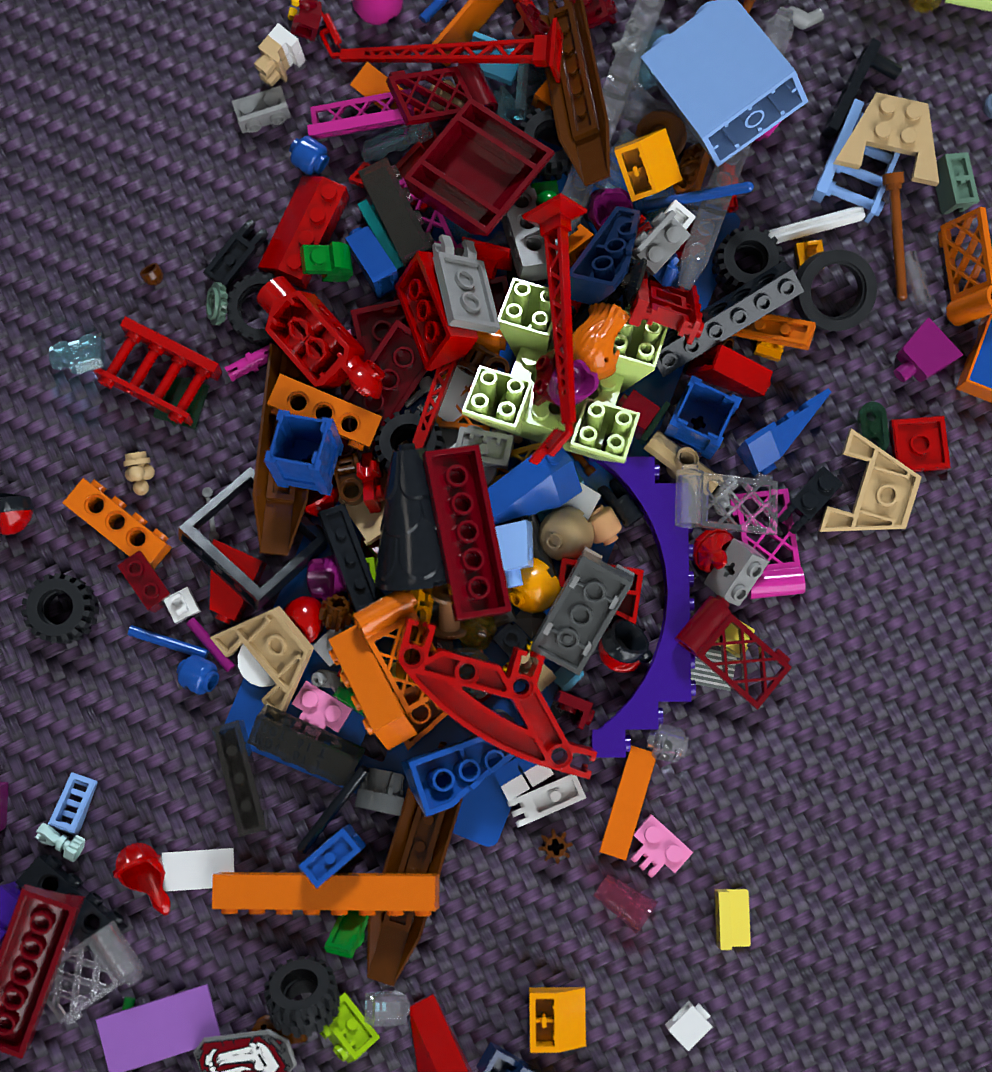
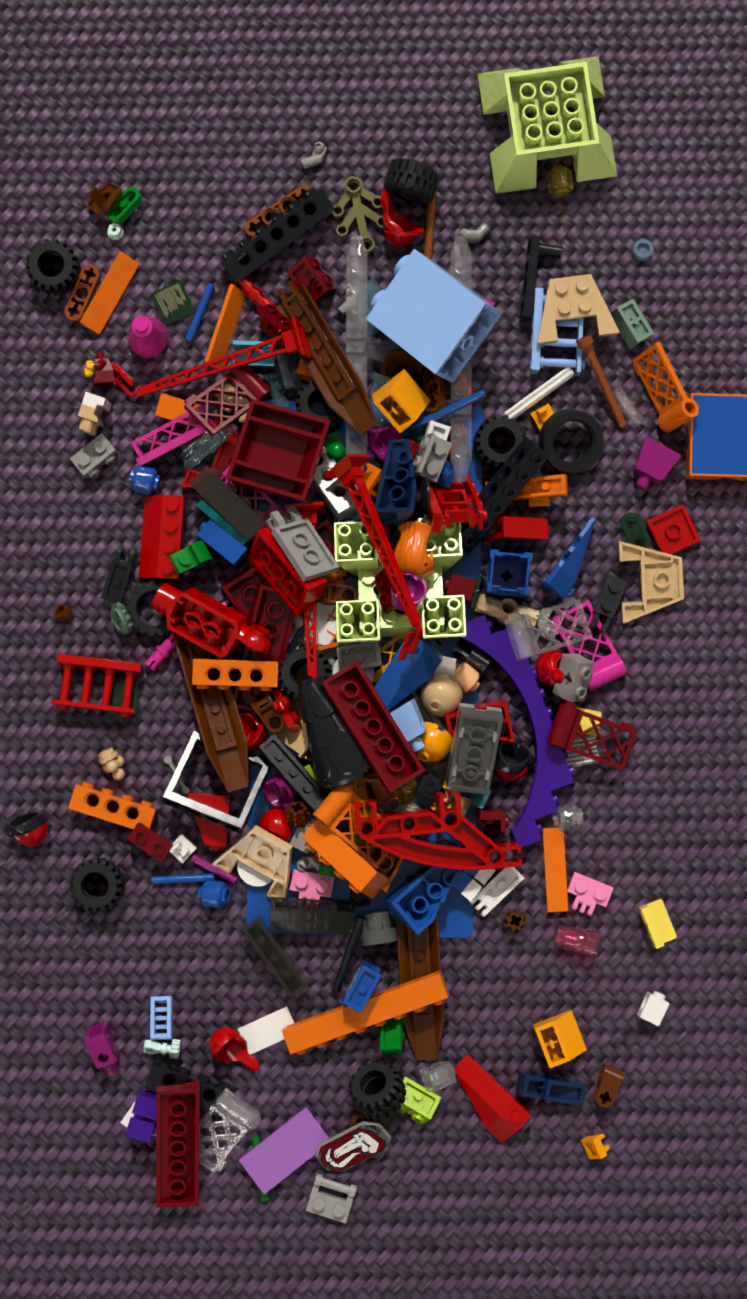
camera: 20 degrees left, 5 degrees up
(79, 355) = (35, 694): clear light blue plate -> none
(302, 439) = (225, 703): blue container -> none

